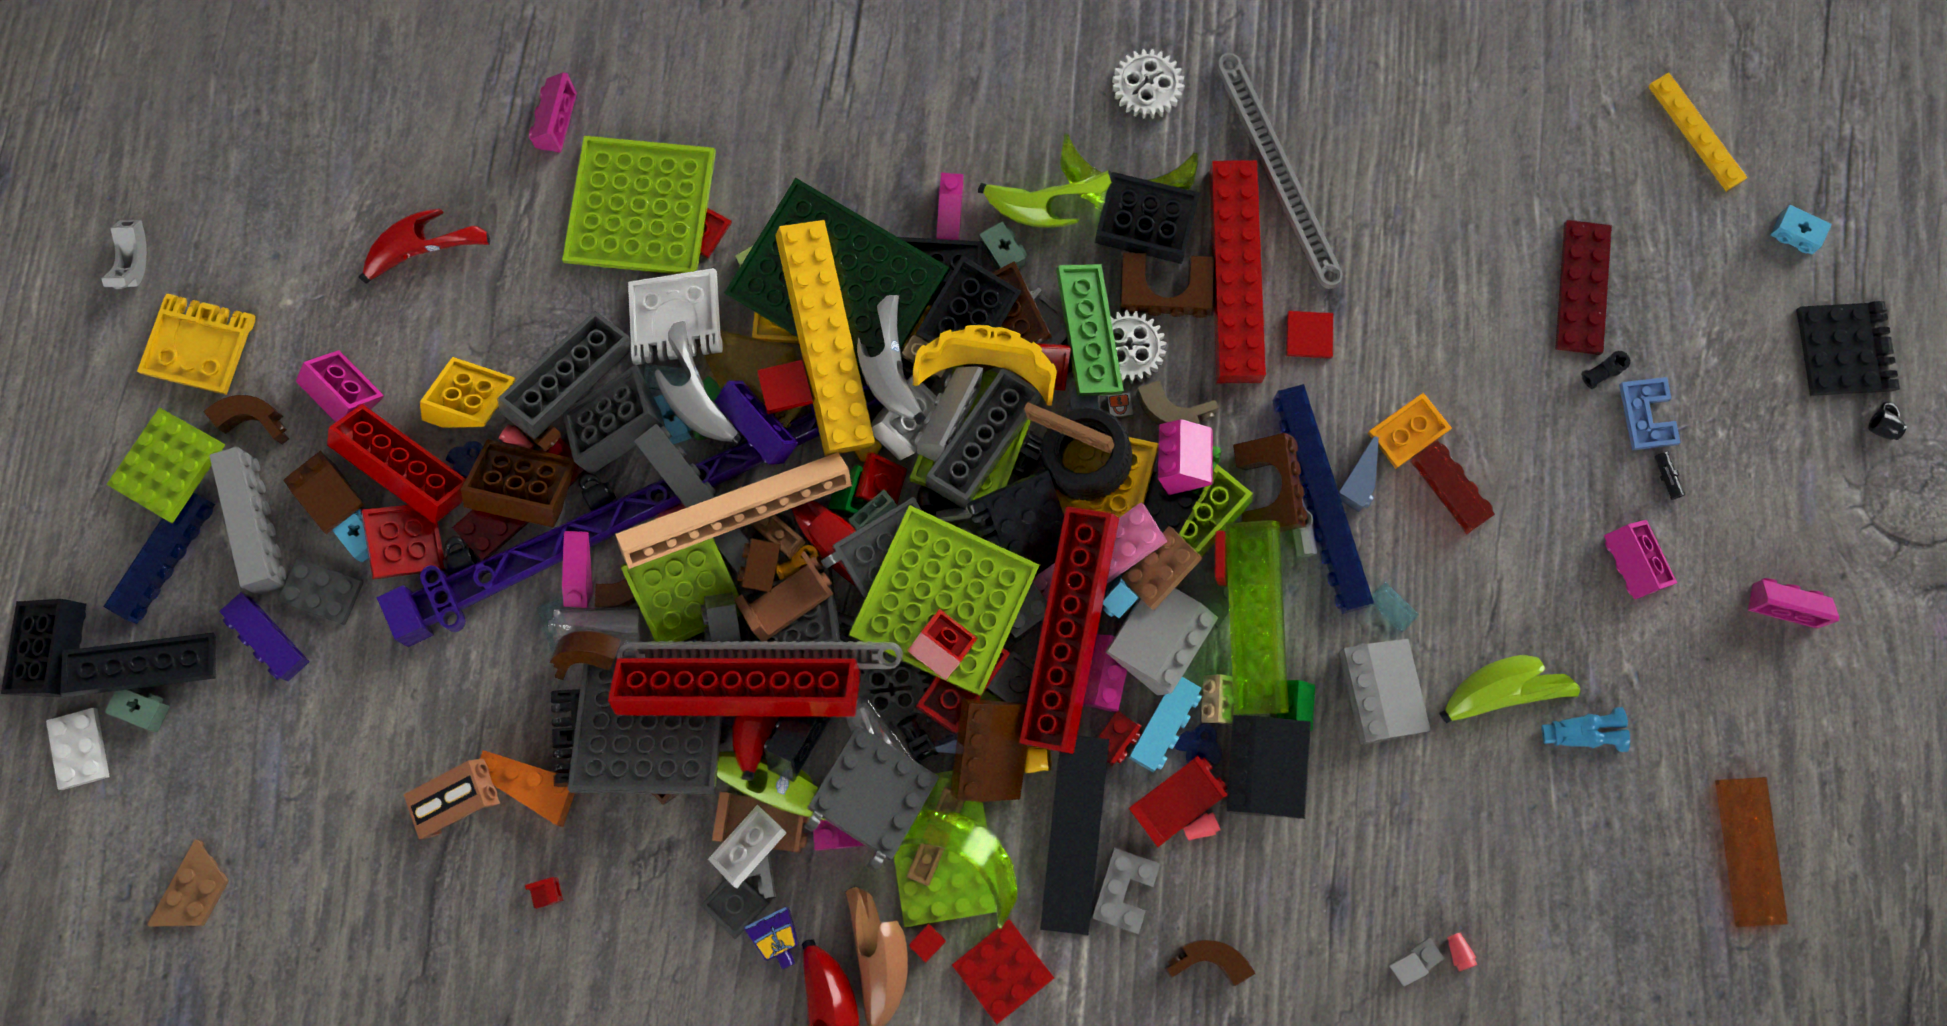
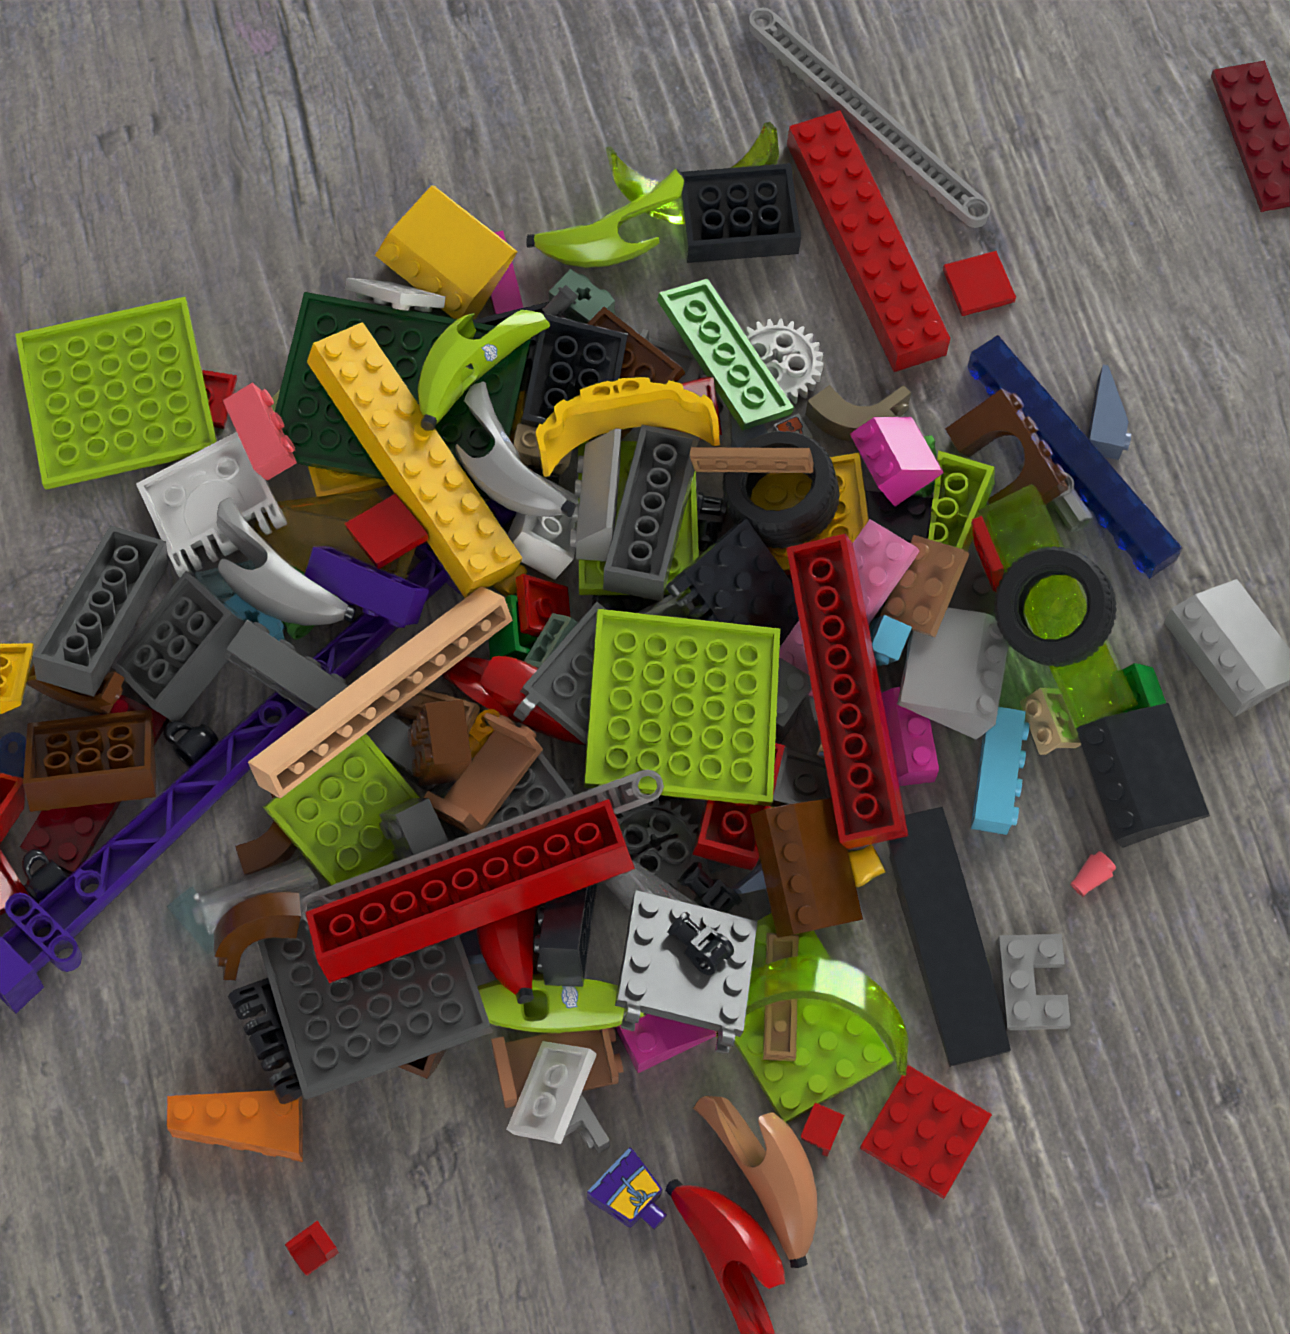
camera: 25 degrees left, 10 degrees down
(451, 797) = (147, 1168): nougat panel -> none
(514, 436) = (60, 709): coral cone -> none
(577, 571) = (205, 835): dark pink slope -> none
(725, 276) = (260, 431): none -> coral brick
(734, 906) = (561, 1175): dark grey tile -> none
(863, 199) = (399, 295): none -> white plate
(881, 275) = (445, 370): none -> lime piece
(886, 784) = (701, 944): none -> black connector
(914, 180) = (447, 253): none -> yellow slope
(942, 644) = (704, 755): red slope -> none
(983, 247) = (560, 302): none -> dark grey pin
(1120, 733) = (955, 799): red bracket -> none
(1135, 70) = (658, 58): white gear -> none
(1138, 297) = (761, 301): reddish brown arch -> none
(1178, 800) = (1052, 852): red panel -> none
(1194, 746) = (1050, 787): clear blue plate -> none
(1216, 615) = (1016, 586): none -> black tyre
(1224, 956) = (1173, 1011): reddish brown arch -> none
(1394, 607) = (1206, 549): clear light blue tile -> none
(1410, 430) = (1139, 349): light orange plate -> none
(1453, 487) = (1214, 394): clear red brick -> none

